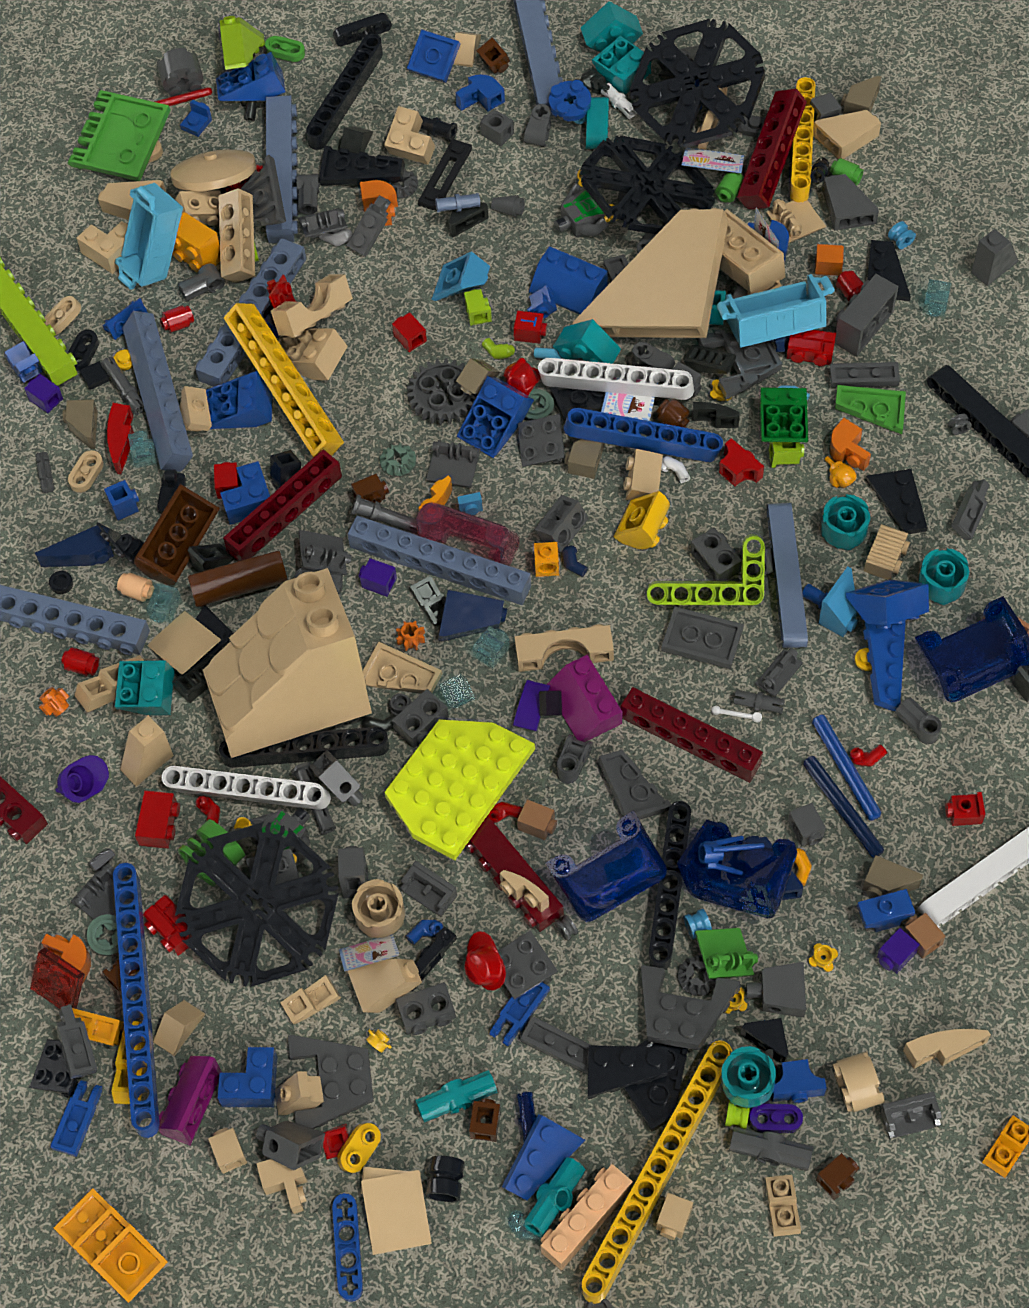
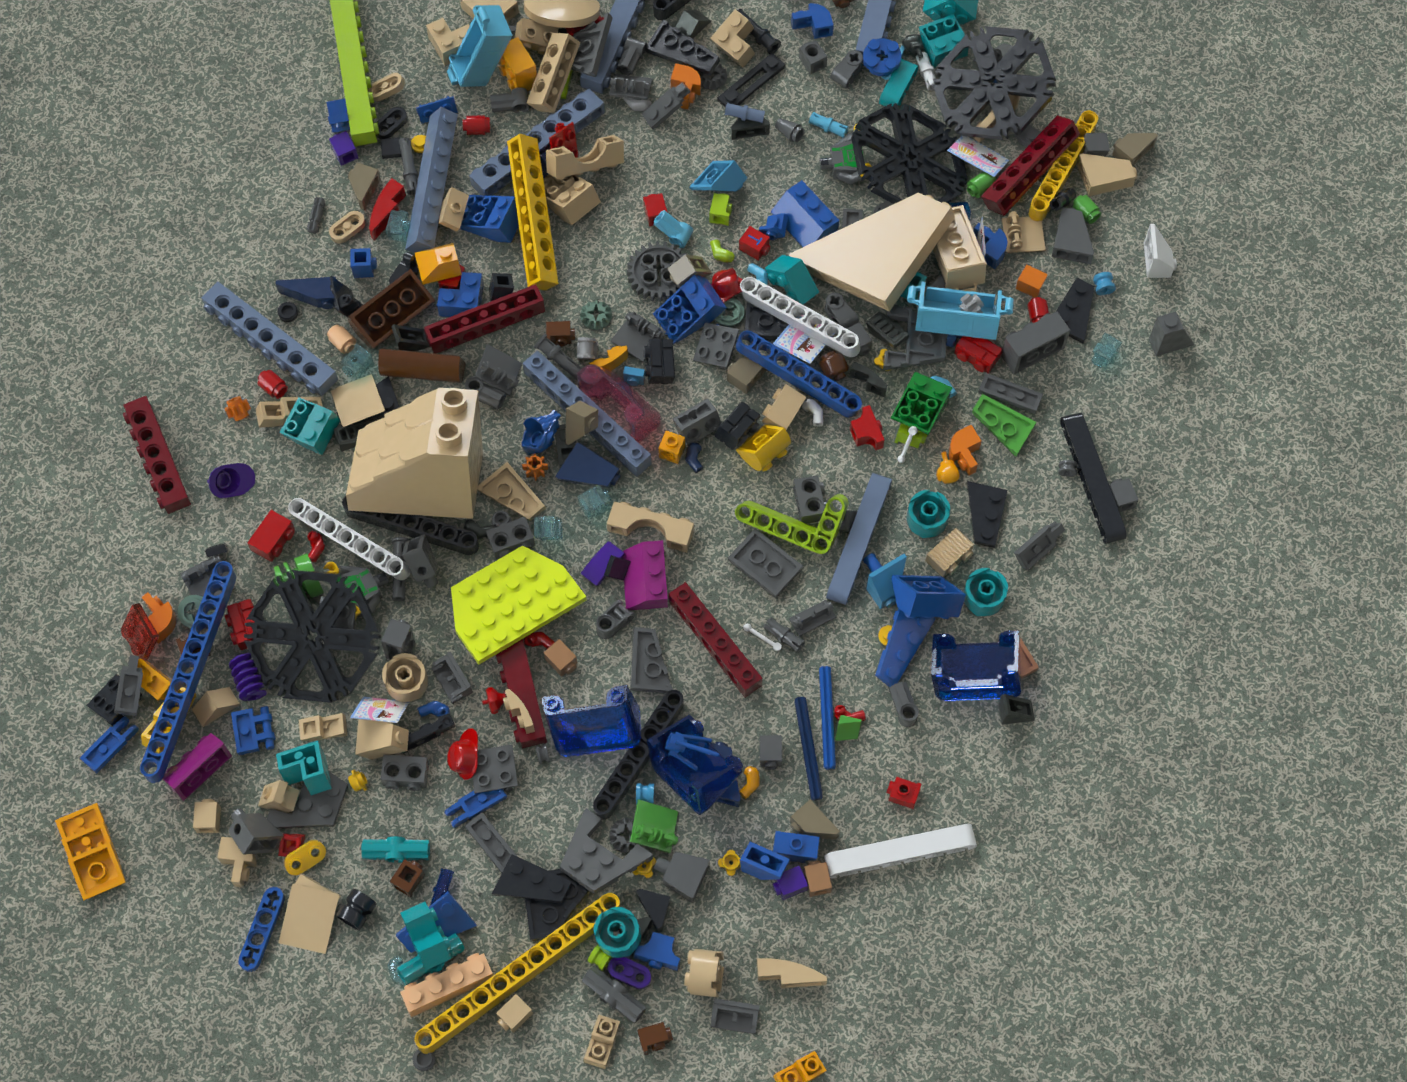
camera: 20 degrees right, 5 degrees up
(145, 751) = (286, 478): tan slope -> none
(199, 982) = (246, 678): none -> dark purple piece
(207, 467) = (438, 263): none -> light orange slope
(227, 1040) = (246, 732): none -> blue plate
(255, 1086) = (249, 776): blue brick -> none
(315, 1043) = (305, 764): none -> teal brick
(377, 577) = (531, 405): dark purple brick -> none
(399, 598) = (540, 432): none -> blue hair
(407, 494) = (587, 348): none -> light grey piece
(441, 566) = (580, 421): none -> dark tan slope
(444, 344) = (677, 231): none -> medium azure piece
(486, 892) = (494, 700): none -> red piece
(490, 478) = (659, 361): none -> black brick
(541, 1171) = (426, 937): none -> teal brick
(545, 186) = (828, 124): none -> medium azure pin
(605, 511) = (737, 426): none -> black brick
(788, 296) = (971, 303): none -> light grey gear
(790, 444) = (912, 431): none -> white hinge
(861, 941) = (763, 862): none -> blue slope
(874, 768) = (848, 728): none -> bright green slope
(939, 187) = (1158, 255): none -> white slope

